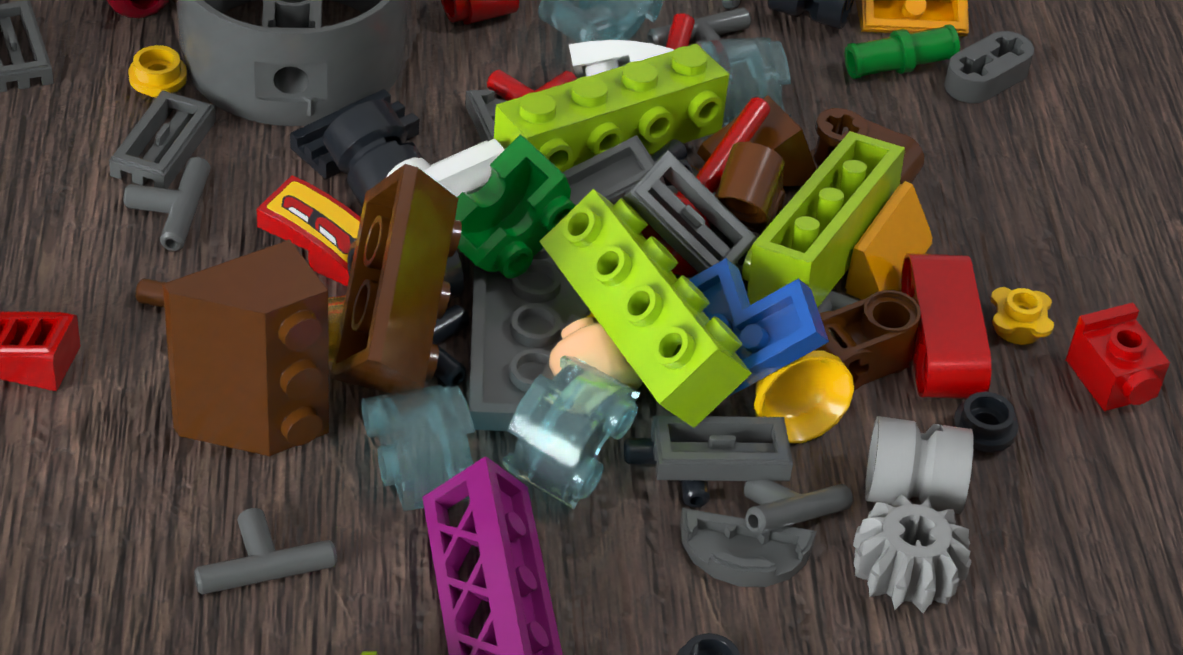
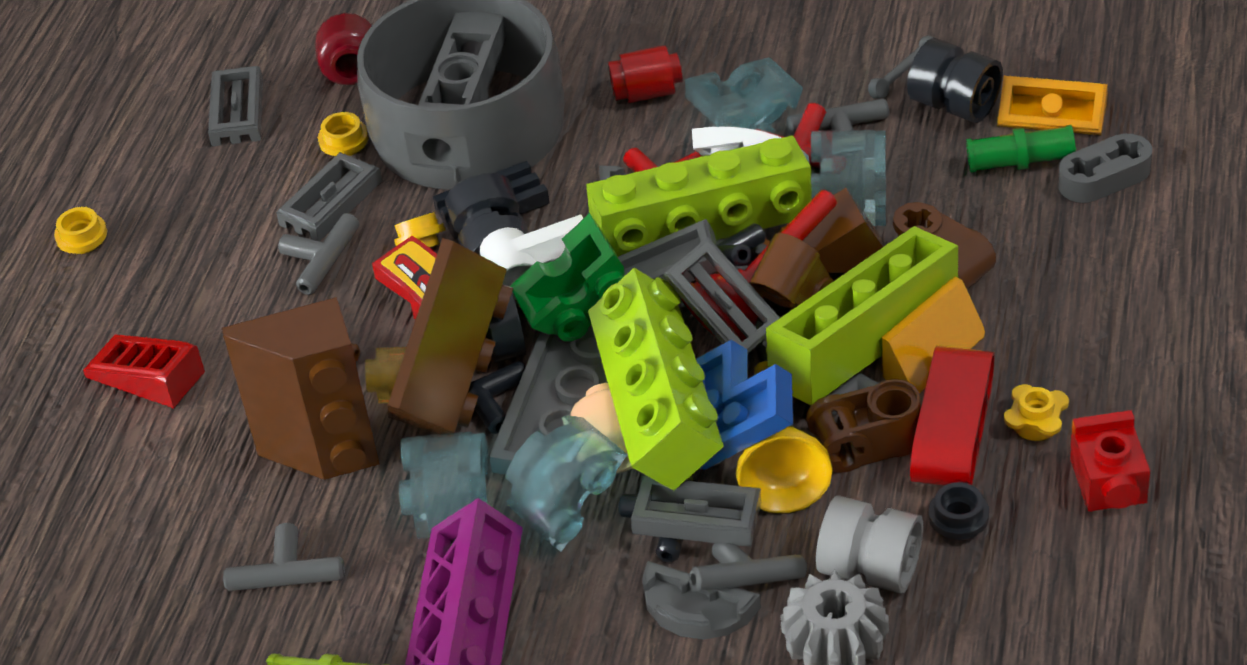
camera: 25 degrees right, 0 degrees up
(295, 164) = (423, 228): none -> yellow plate

